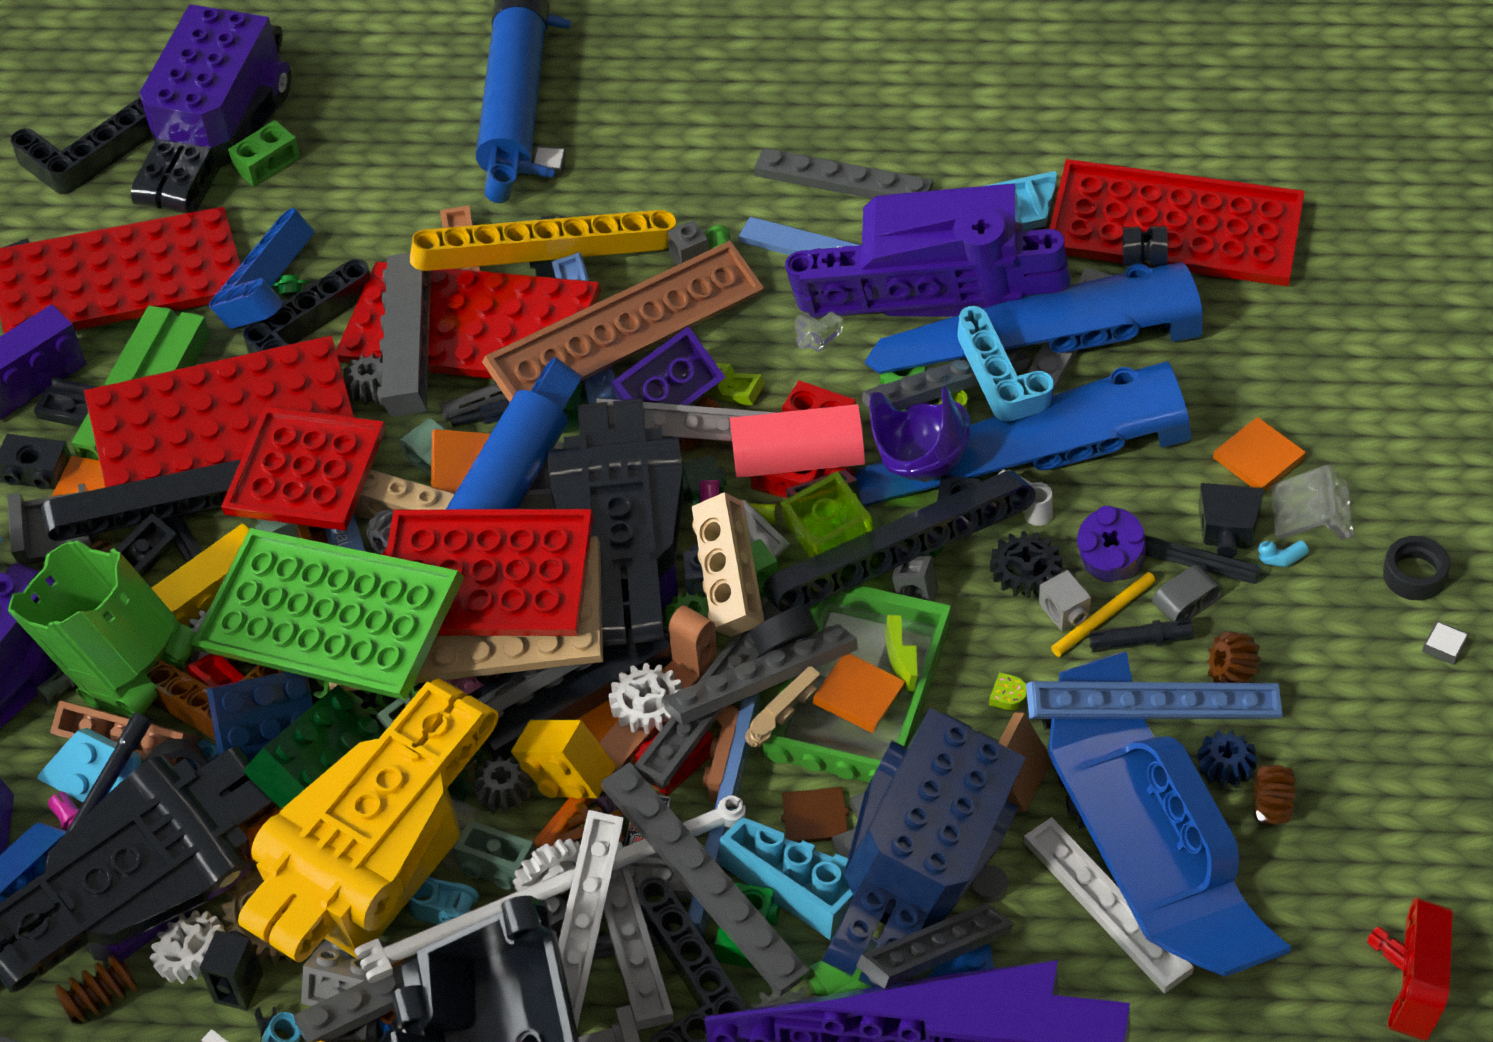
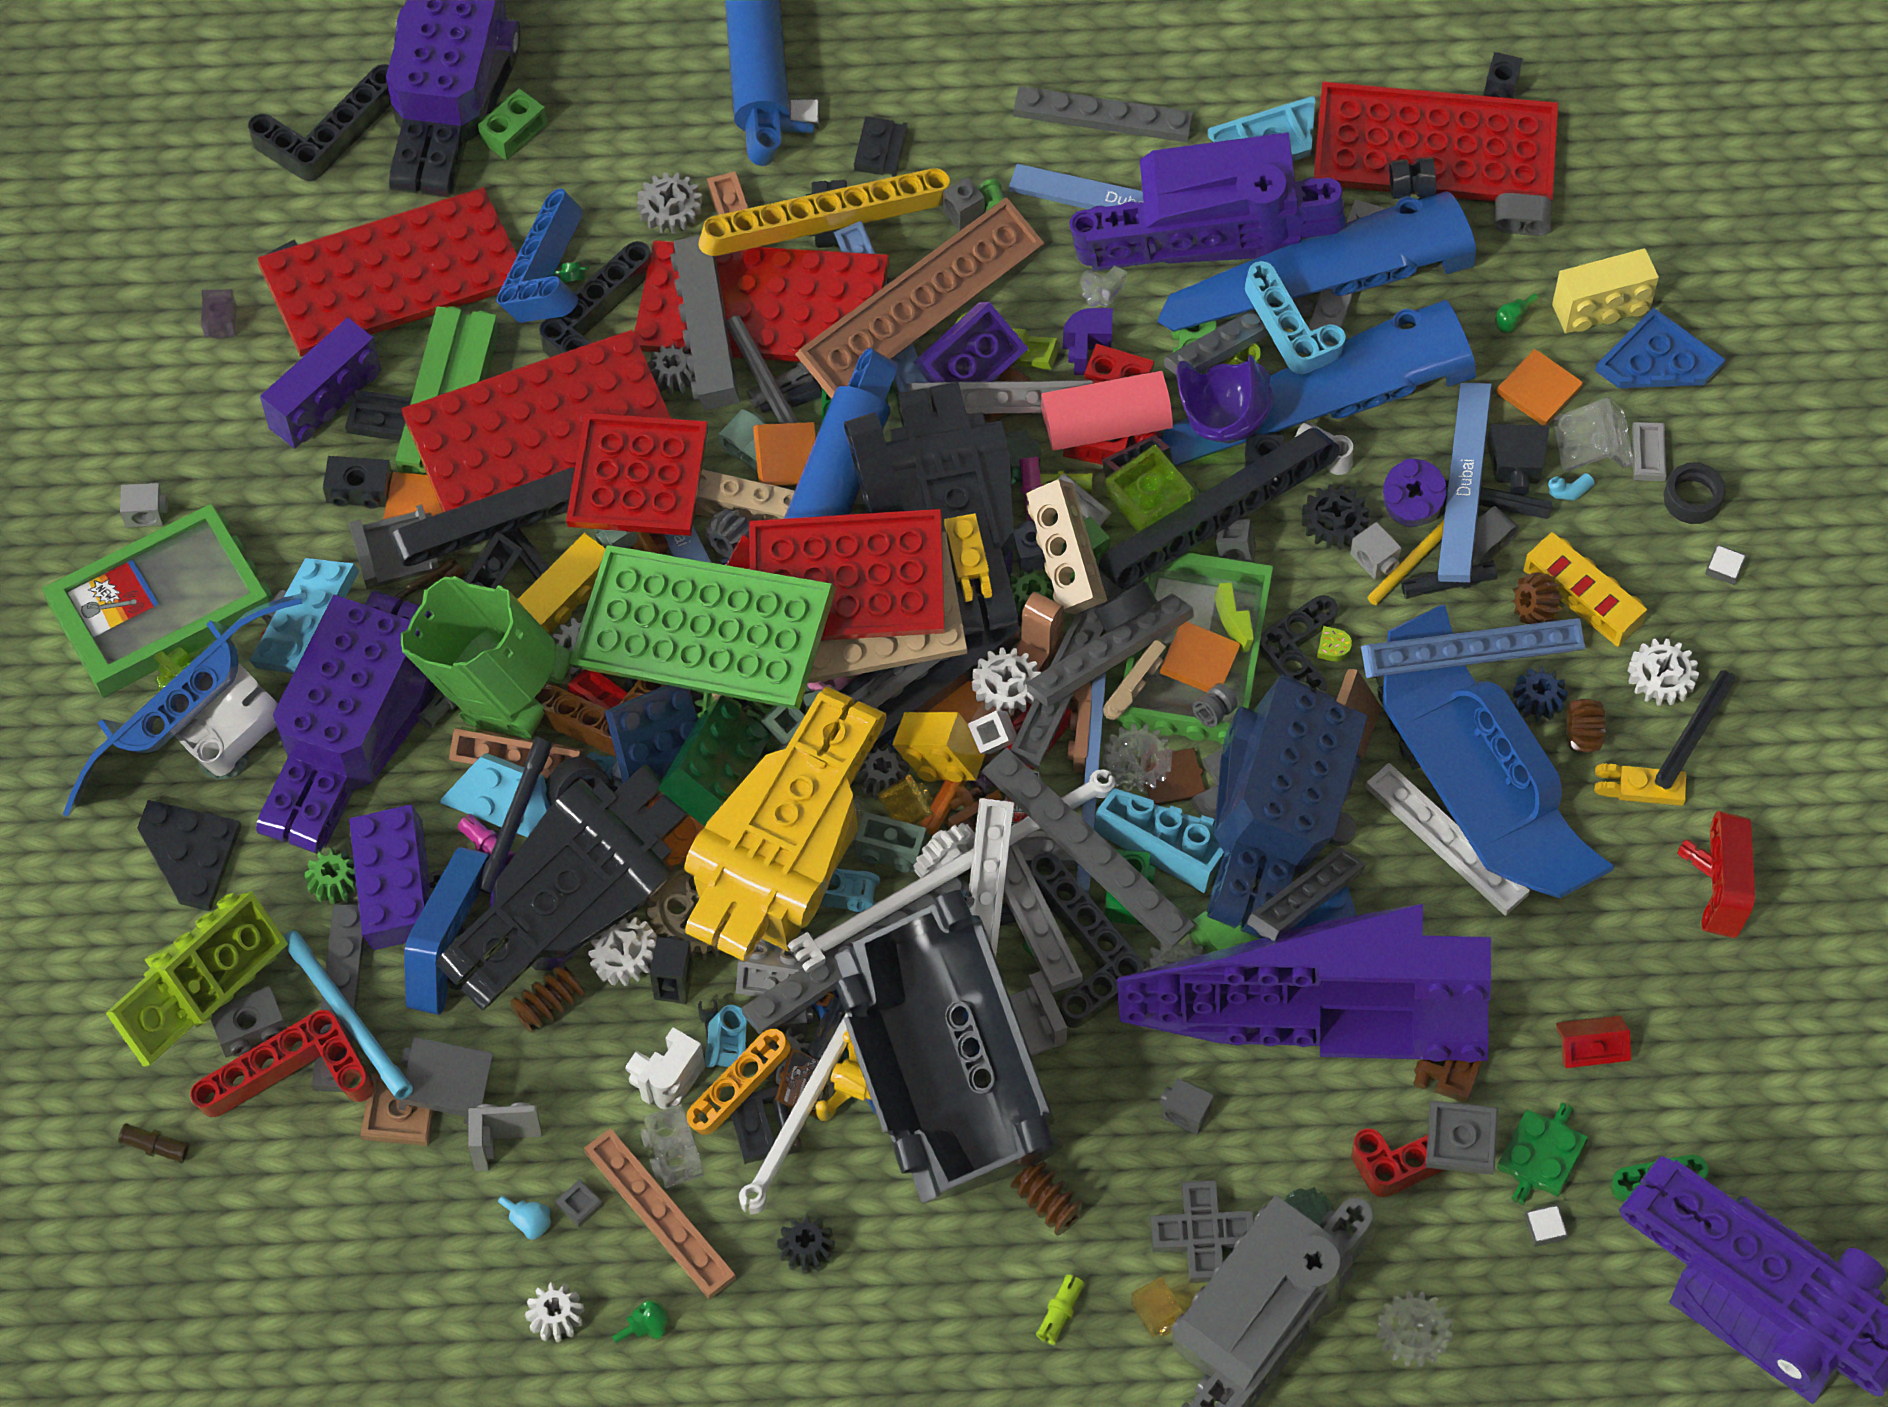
camera: 10 degrees left, 10 degrees up
(398, 228) = (669, 202): none -> light grey gear
(452, 381) = (760, 370): none -> dark grey axle
(521, 814) = (906, 801): none -> clear yellow brick
(531, 460) = (873, 464): none -> black beam
(617, 192) = (880, 146): none -> black plate
(618, 560) = (968, 554): none -> yellow hinge
(619, 746) = (993, 732): none -> white brick
(761, 787) = (1123, 762): none -> clear gear
(790, 366) = (1084, 331): none -> dark purple brick
(868, 738) = (1217, 703): none -> dark grey wheel
(961, 686) = (1291, 641): none -> black beam
(1167, 540) = (1465, 483): none -> medium blue tile
(1236, 381) = (1510, 314): none -> green piece
(1251, 163) = (1503, 76): none -> black brick
(1258, 290) = (1523, 214): none -> dark grey beam
(1291, 656) = (1587, 589): none -> yellow brick
(1332, 864) = (1639, 785): none -> yellow hinge
(1336, 363) = (1605, 291): none -> light yellow brick
(1366, 746) = (1652, 662): none -> white gear
(1371, 525) = (1649, 451): none -> light grey tile
(1389, 431) = (1659, 356): none -> blue plate
(1396, 809) = (1694, 729): none -> black axle

